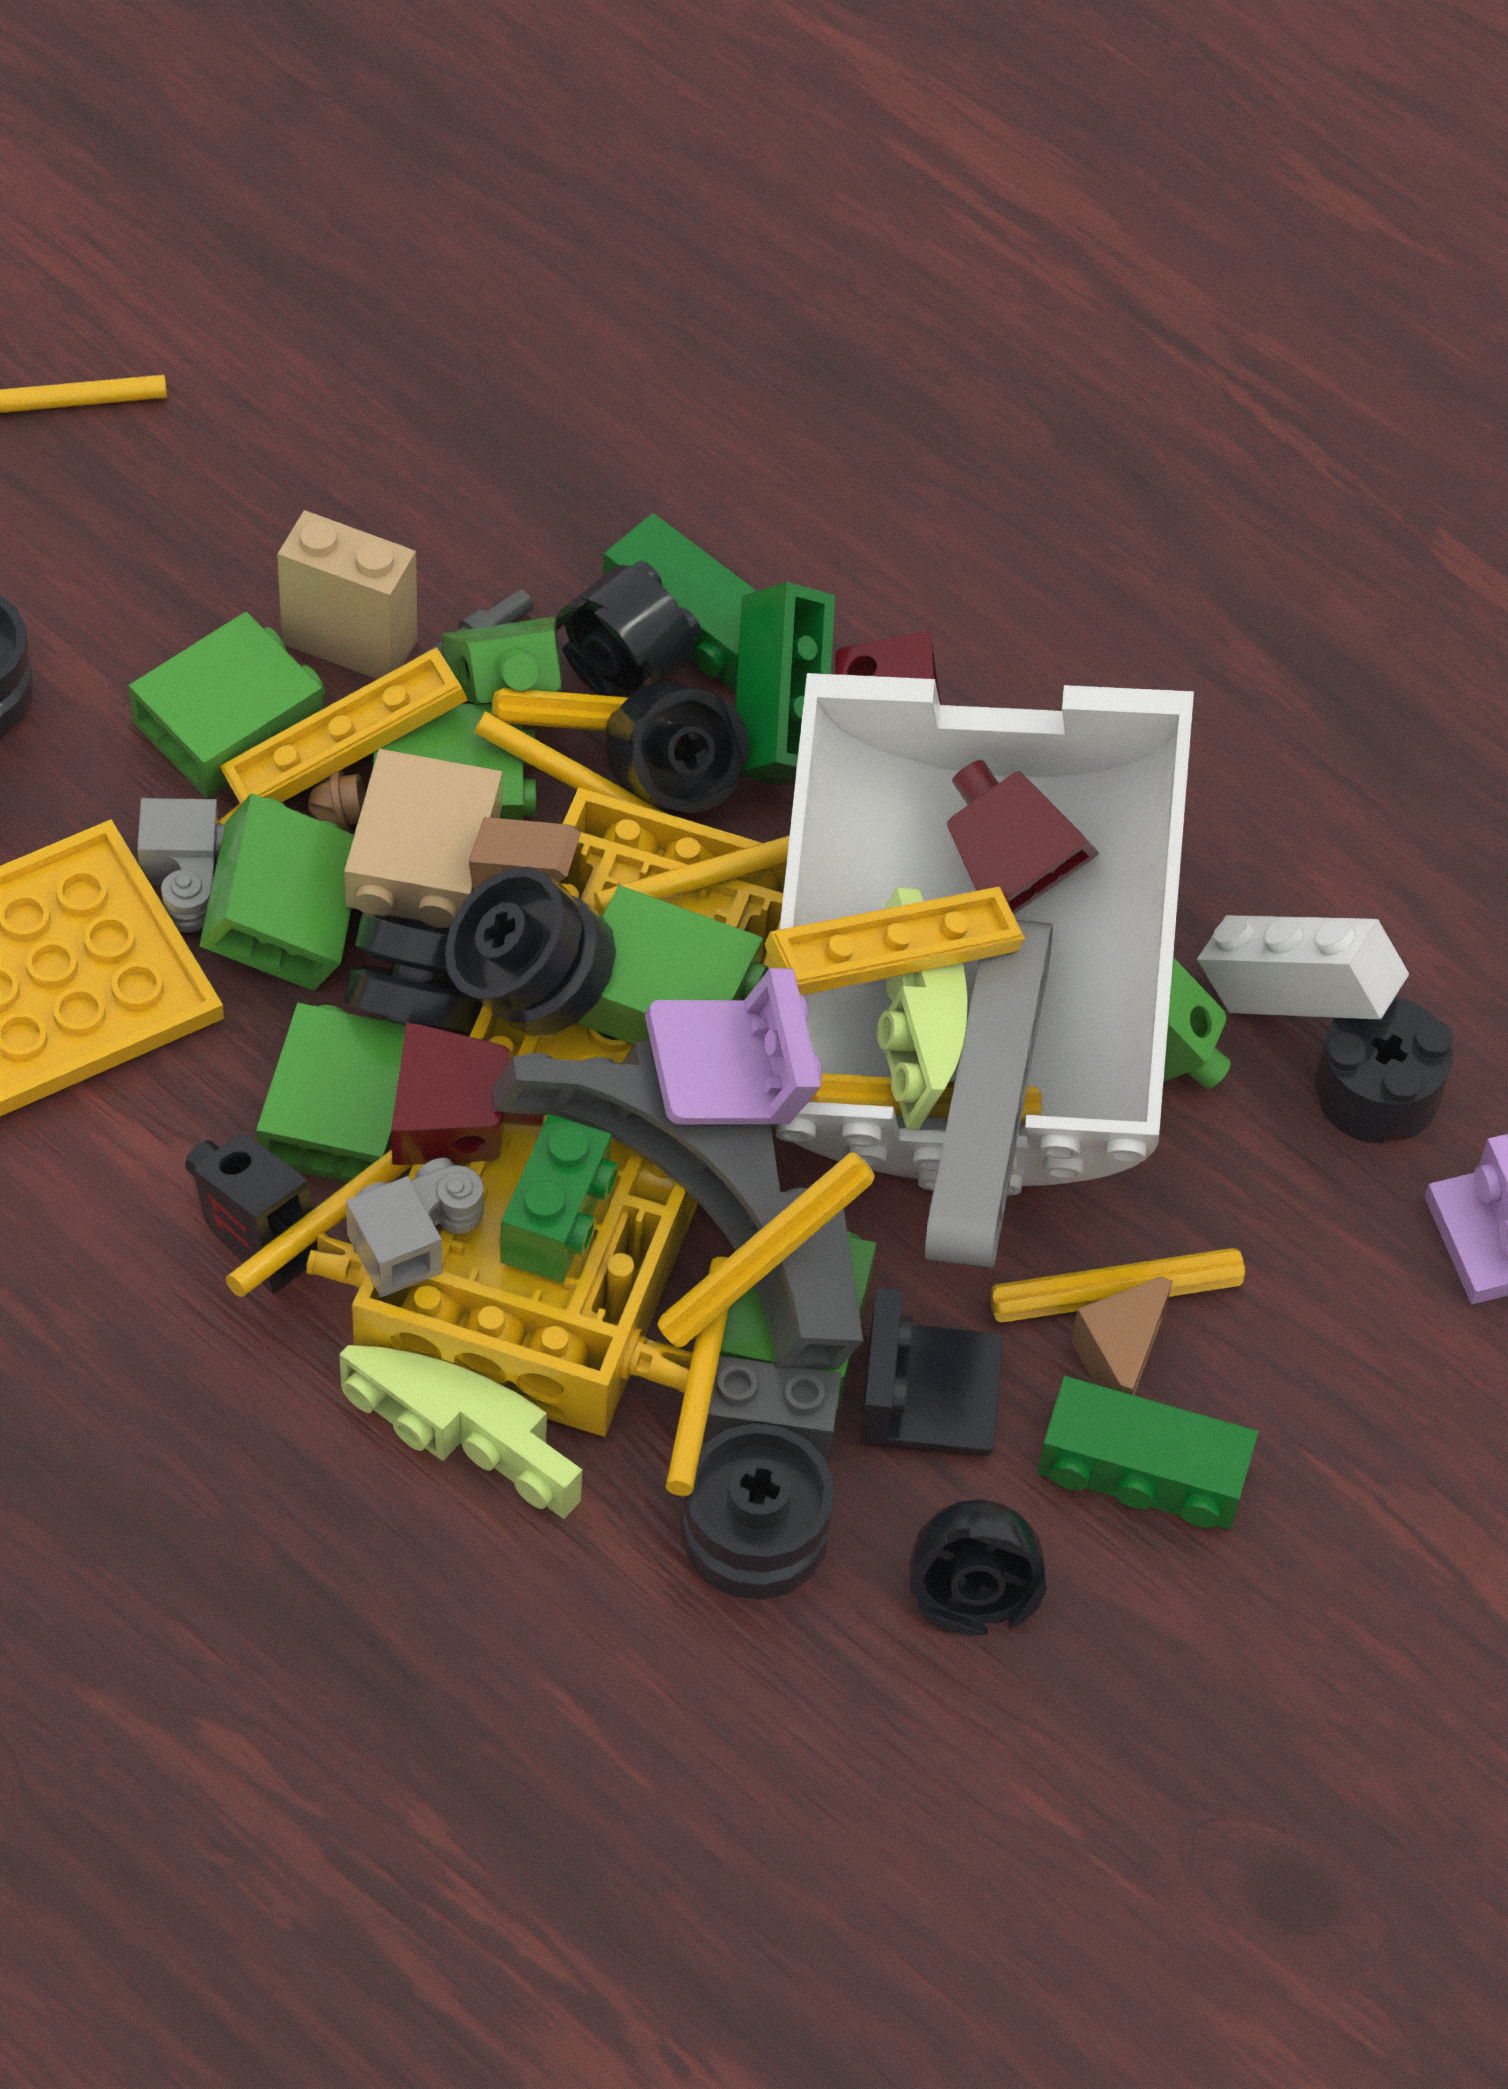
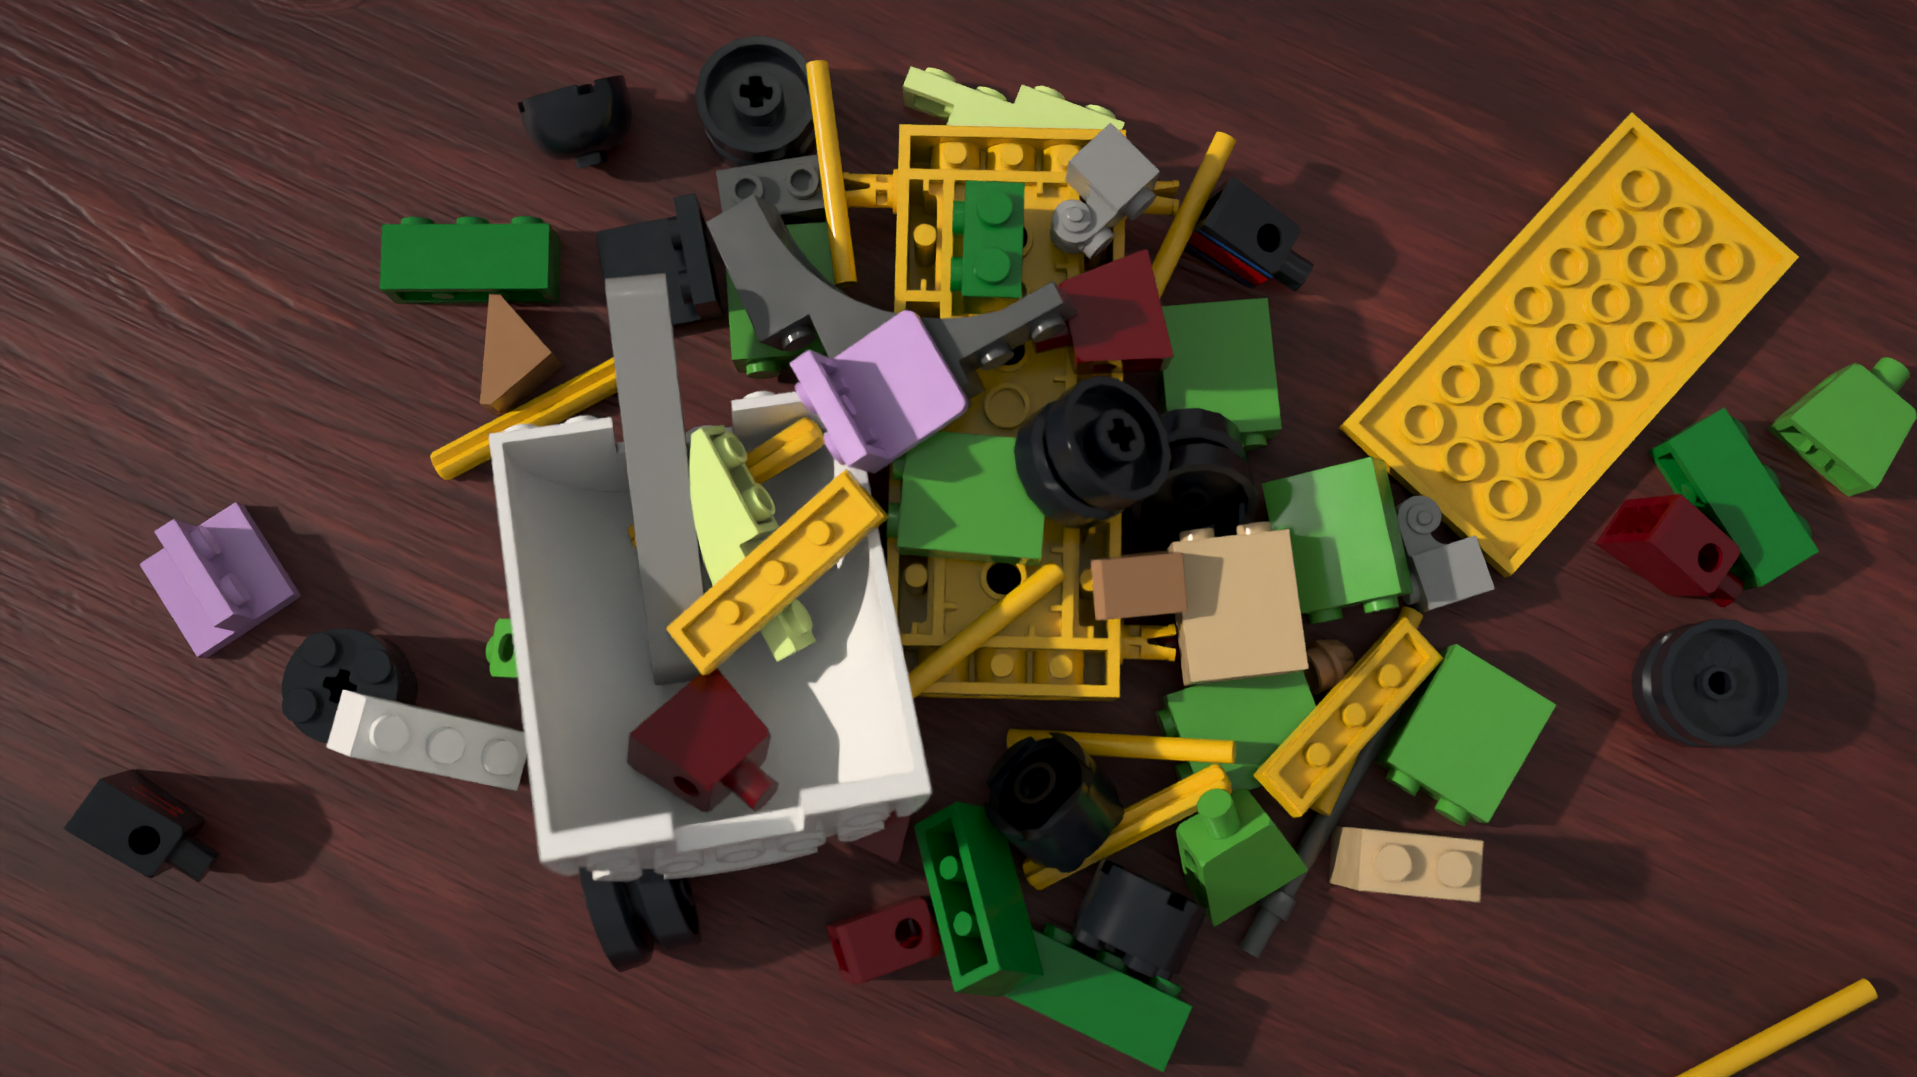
camera: 165 degrees right, 25 degrees up
(766, 1249) = (798, 248): yellow axle -> none

